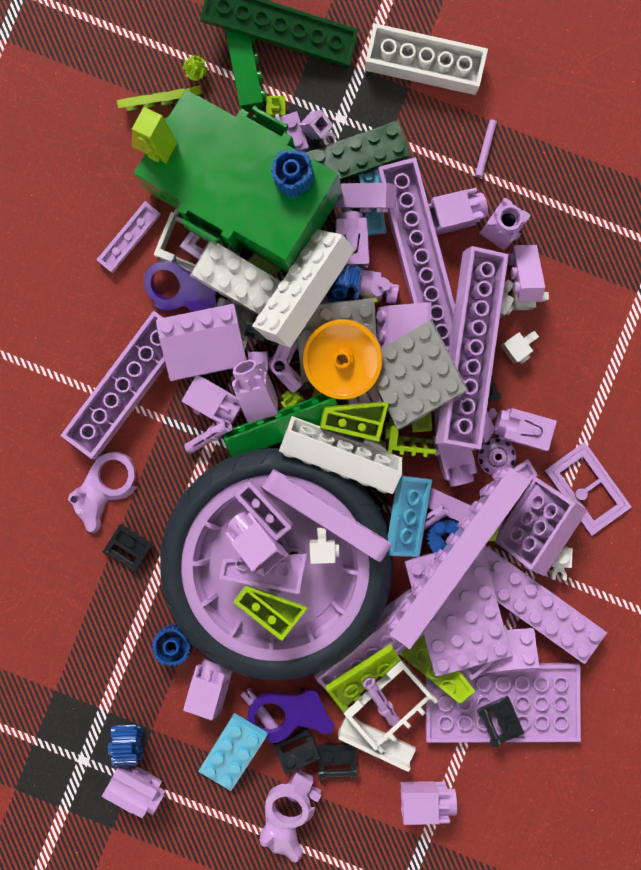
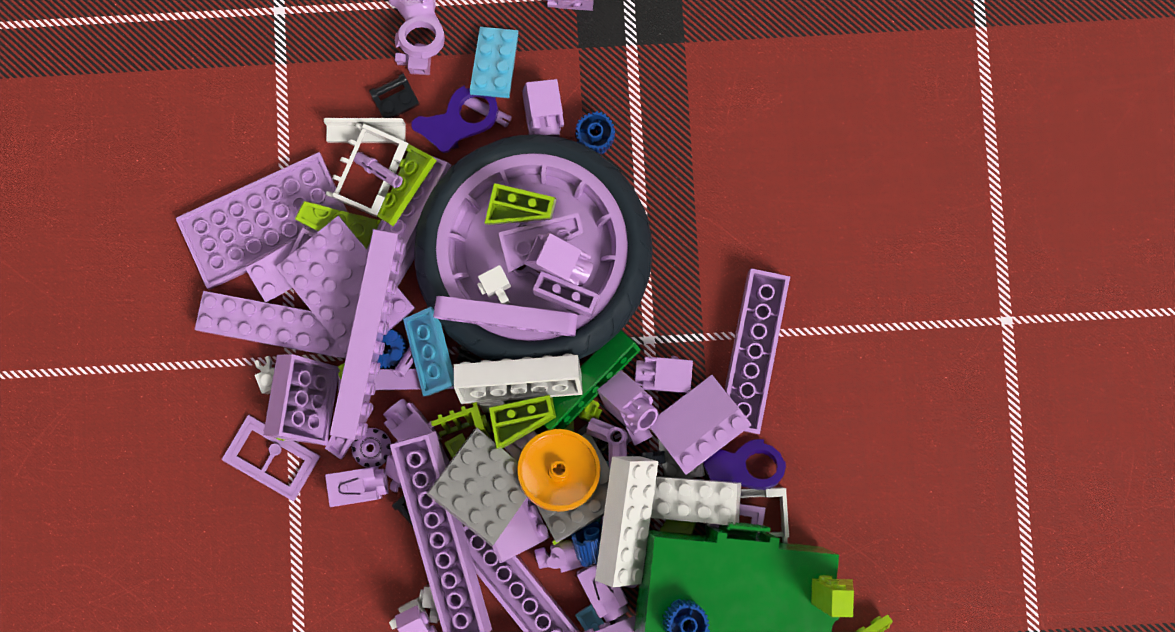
camera: 155 degrees right, 5 degrees down
(92, 496) = (735, 235): lavender animal -> none
(125, 745) = (594, 24): blue brick -> none
(128, 237) = (818, 494): lavender plate -> none
(130, 542) = (679, 208): black plate -> none
(220, 429) = (649, 343): lavender pin -> none
(300, 756) = (431, 85): black plate -> none
(427, 802) = (294, 98): lavender piece -> none
(506, 718) = (253, 207): black plate -> none
(518, 347) = (397, 561): white brick -> none

